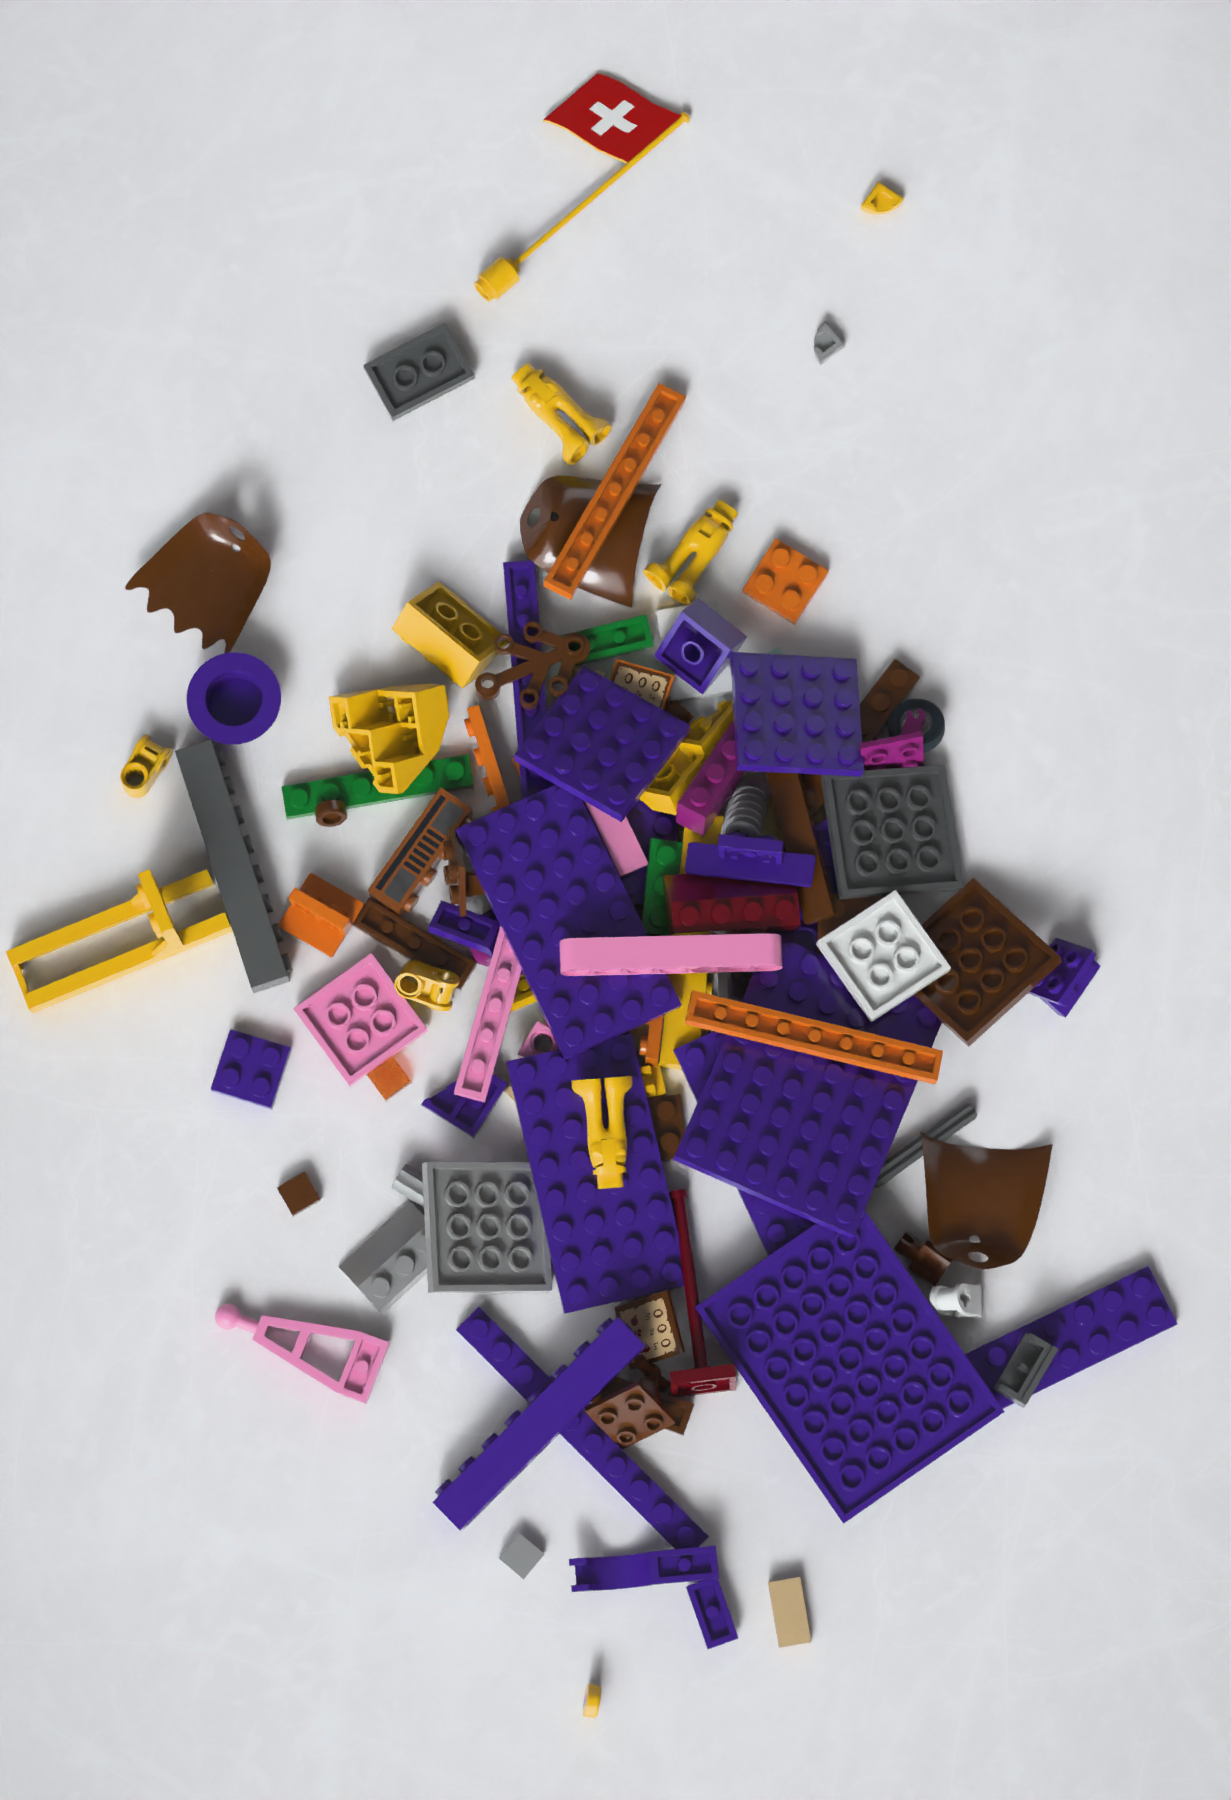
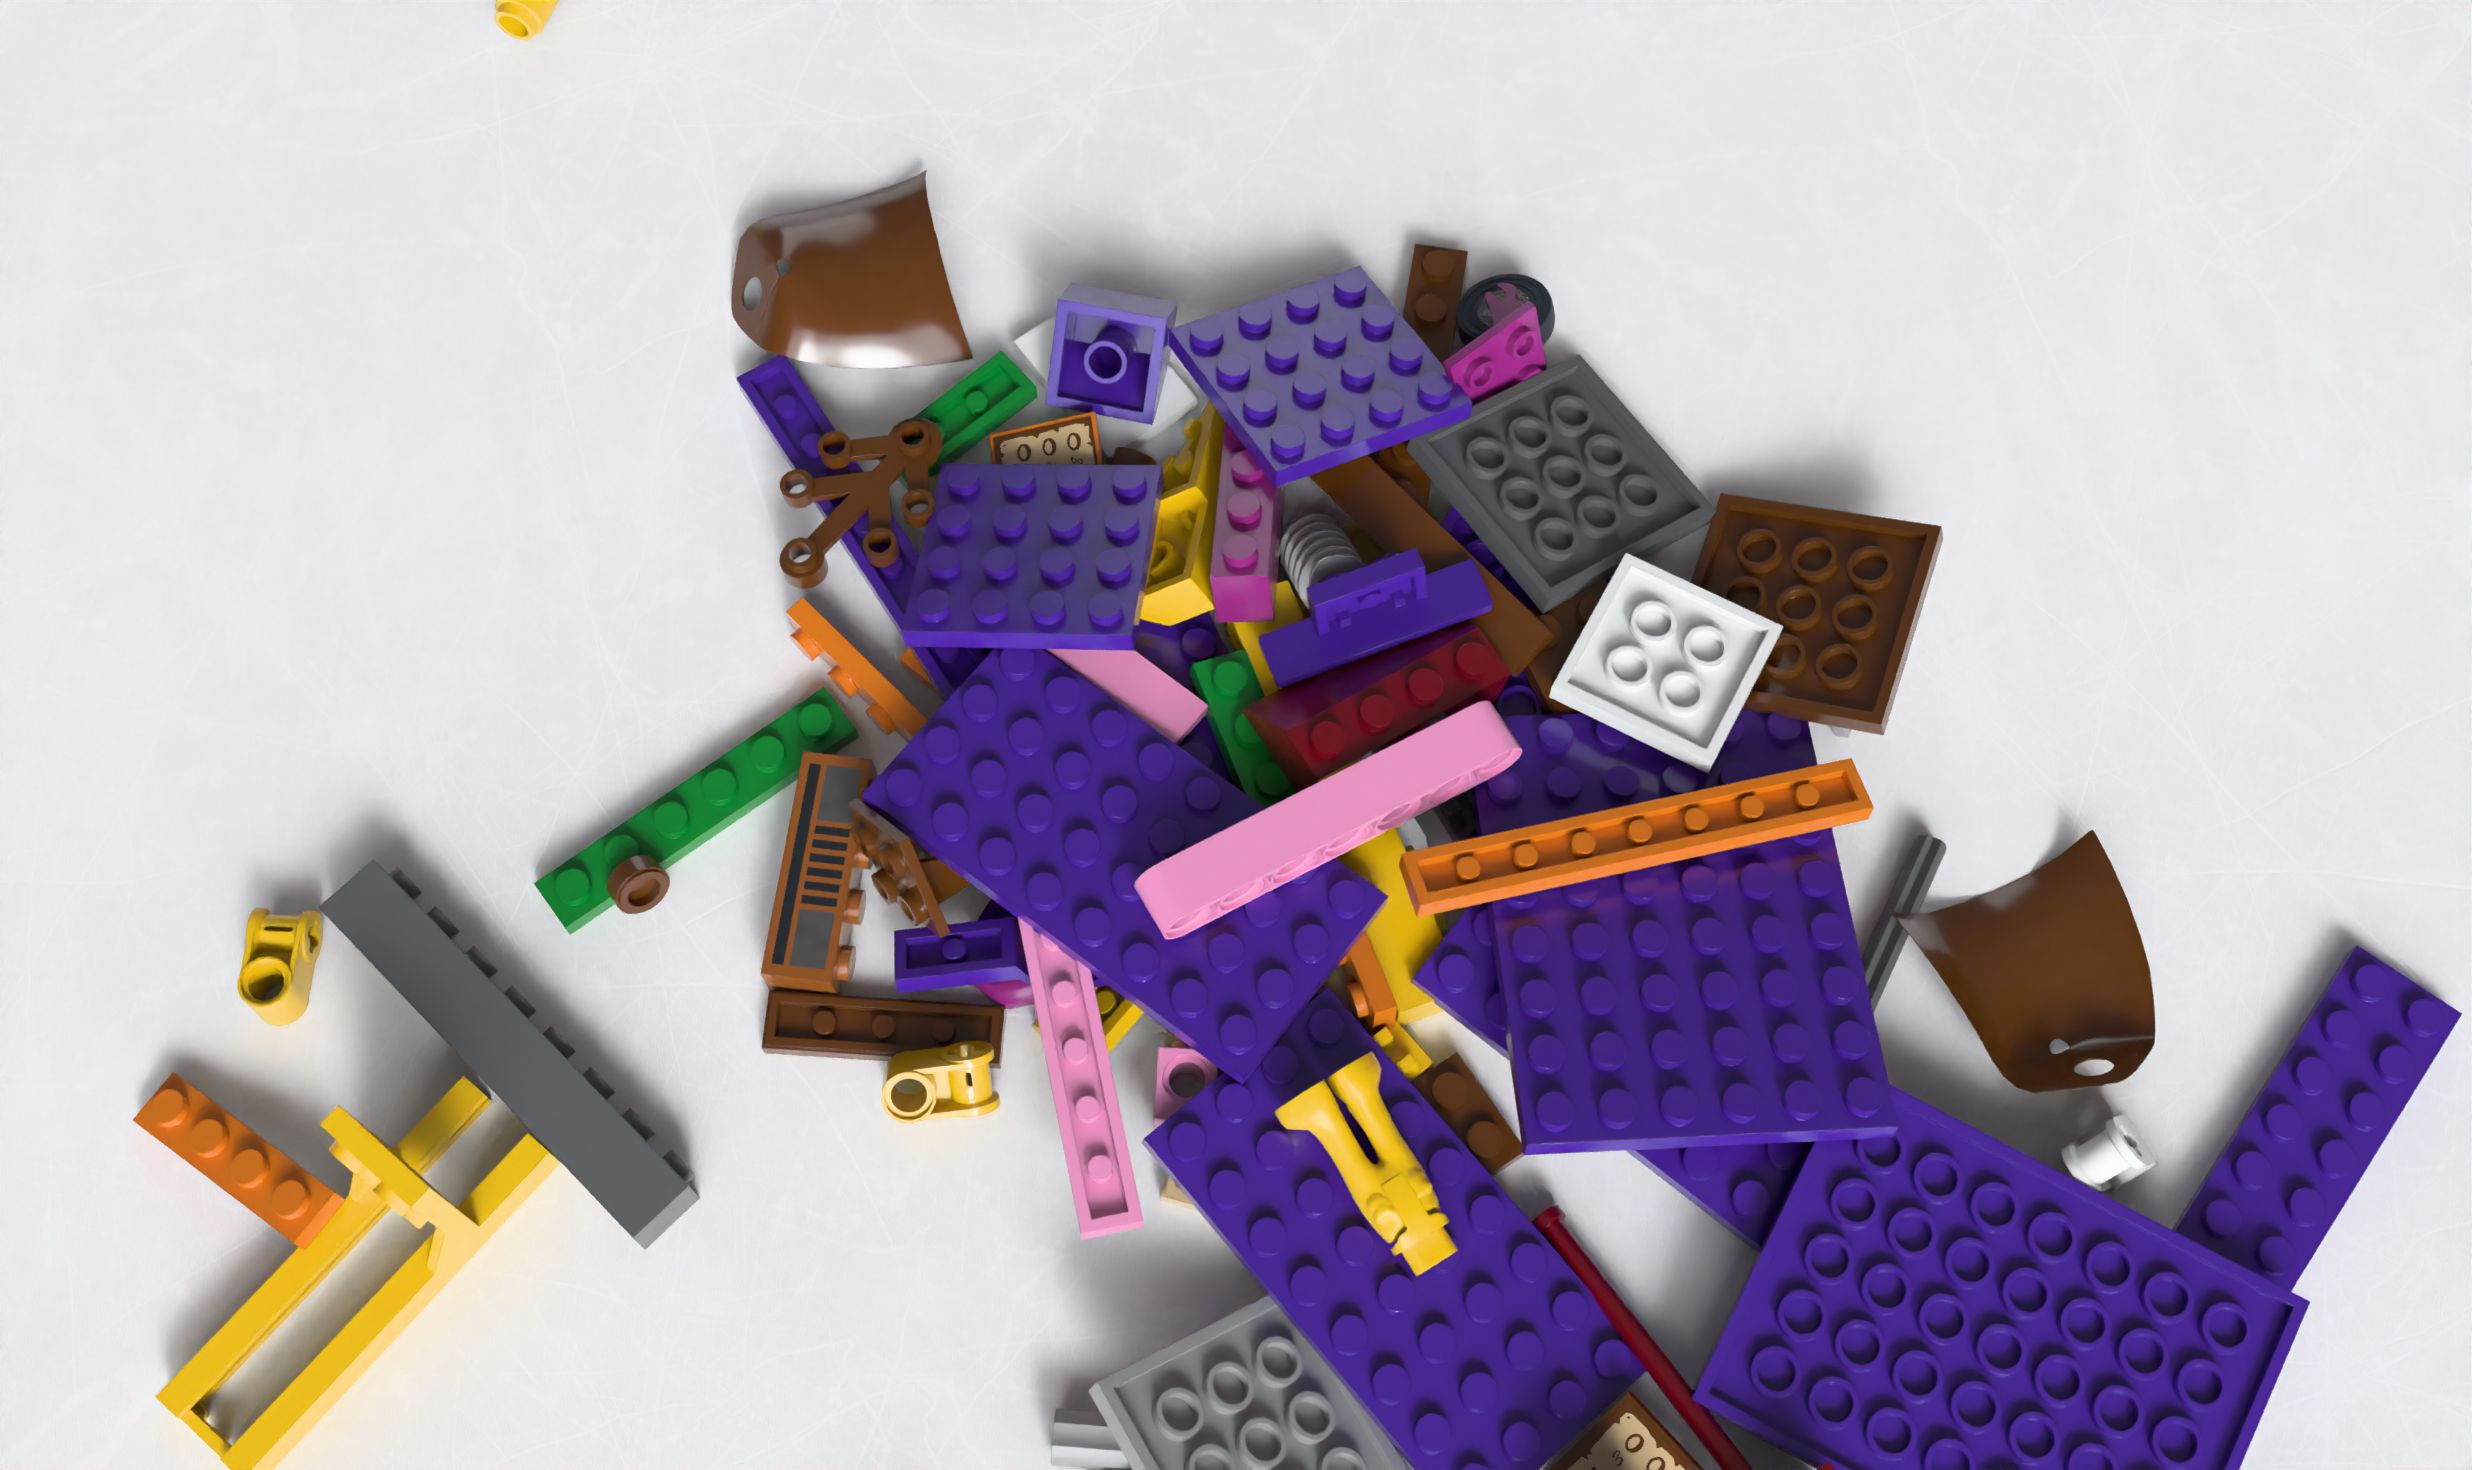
camera: 30 degrees left, 10 degrees down
(86, 856) = (239, 1161): none -> orange plate
(200, 598) = (220, 643): reddish brown piece -> none
(233, 698) = (384, 777): dark purple hose -> none
(251, 1069) = (700, 1384): dark purple plate -> none
(320, 914) = (698, 1059): orange bracket -> none
(360, 1019) = (853, 1200): bright pink plate -> none
(389, 1078) = (952, 1276): clear orange tile -> none
(392, 730) = (679, 703): yellow brick -> none
(419, 371) = (468, 175): dark grey plate -> none
(448, 634) = (699, 523): yellow slope -> none
(464, 1112) = (1106, 1266): dark purple wing -> none
(548, 397) = (692, 130): yellow piece -> none
(614, 491) = (859, 200): orange plate -> none
(703, 537) = (1034, 208): yellow piece -> none
(785, 581) = (1188, 216): orange plate -> none
(925, 1258) = (2011, 1116): reddish brown plate -> none
(1025, 1369) = (2294, 1212): dark grey hinge -> none
(1069, 979) = (1960, 577): dark purple bracket -> none

